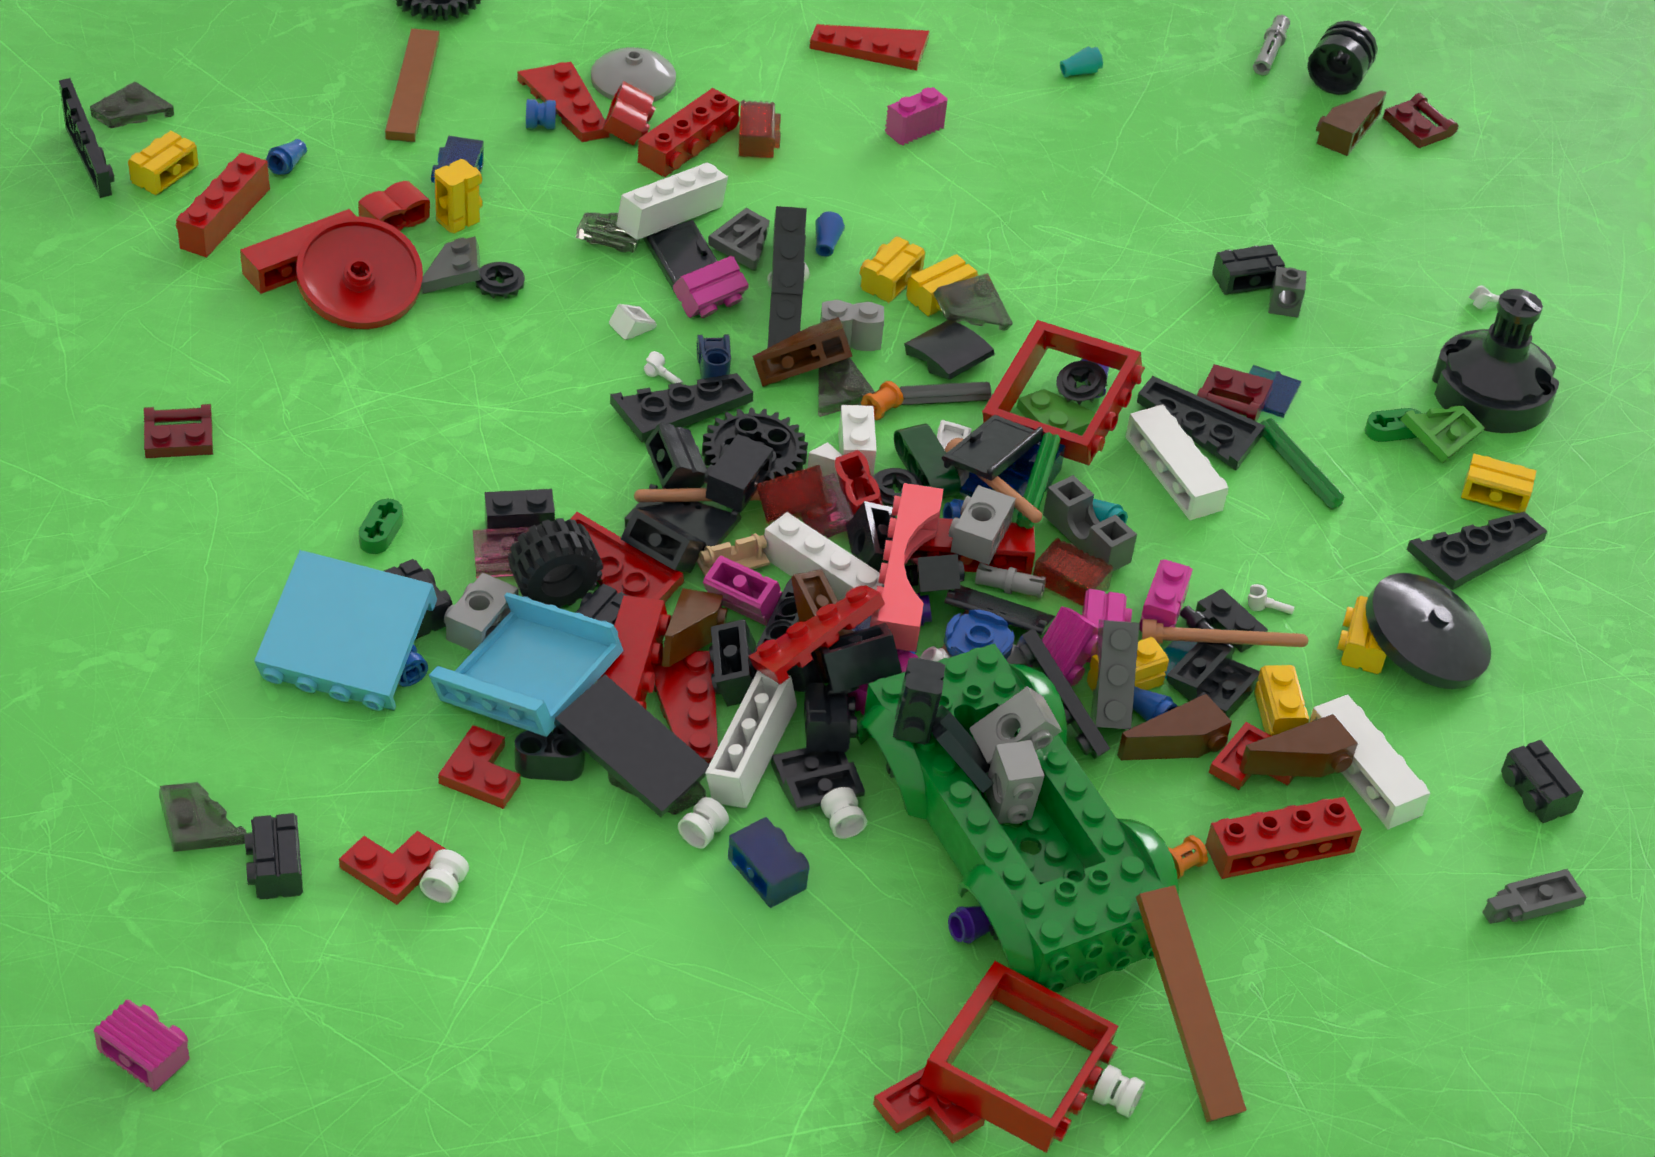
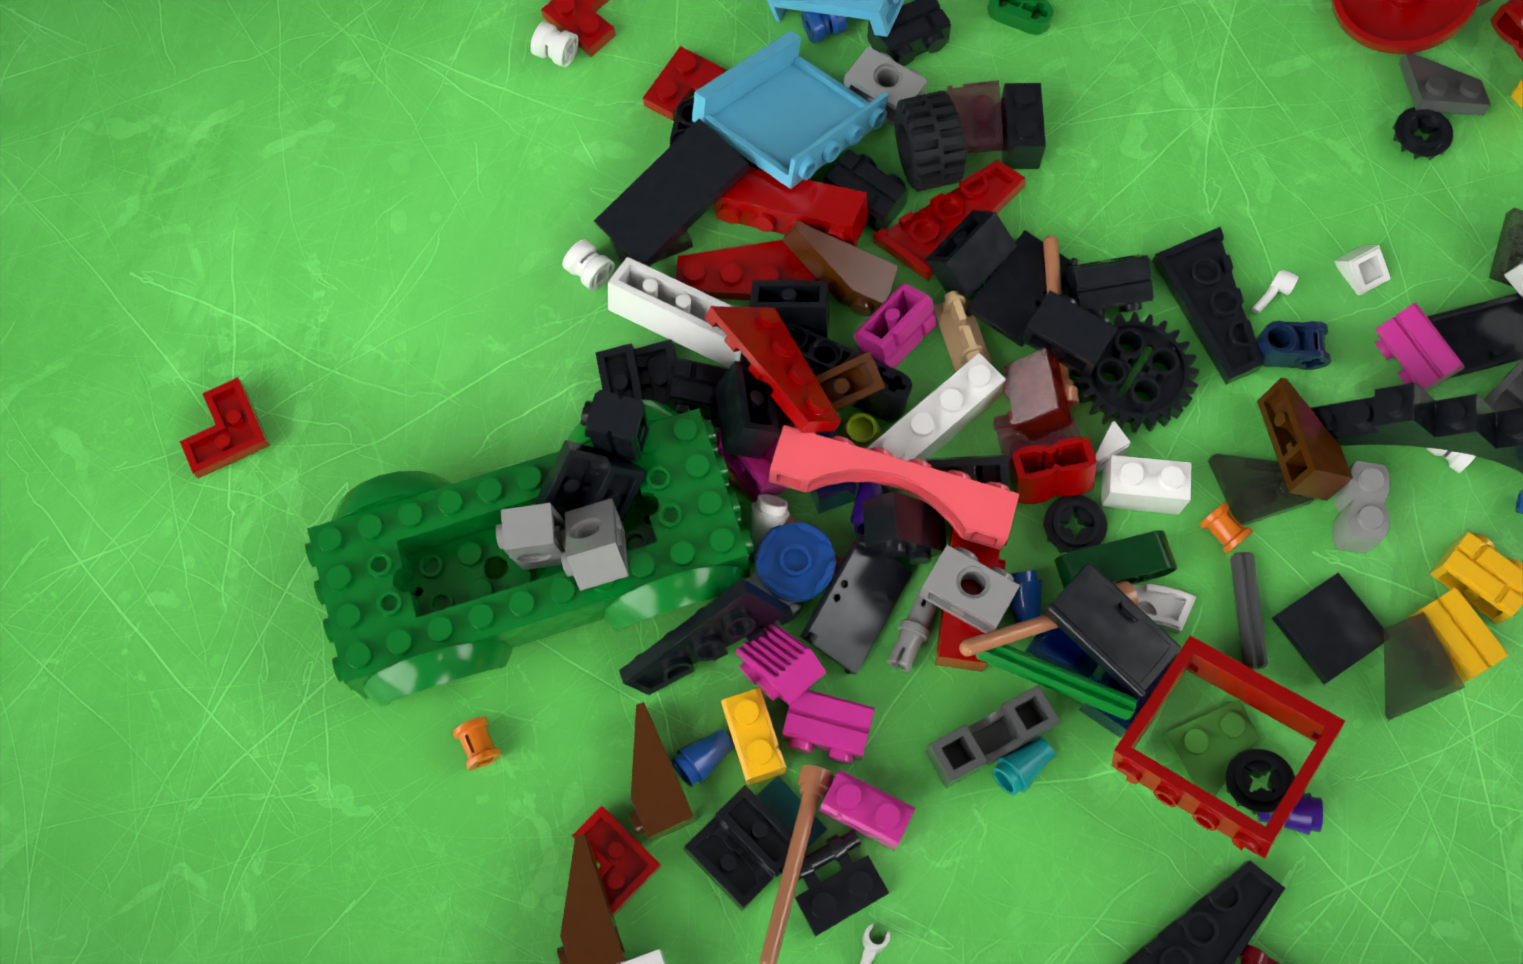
camera: 105 degrees right, 25 degrees up
(768, 861) = (531, 318): clear blue brick -> none
(842, 810) = (573, 391): white wheel -> none
(1048, 1010) = (185, 474): red window -> none
(1072, 571) = (919, 705): clear red brick -> none
(1116, 674) = (711, 698): dark grey arch -> none
(1125, 1096) = (196, 608): white wheel -> none
(1176, 462) = (1119, 884): white brick -> none
(1191, 1003) = (250, 683): dark orange tile -> none
(1280, 699) = (681, 915): yellow brick -> none
(1282, 837) = (487, 867): red brick -> none

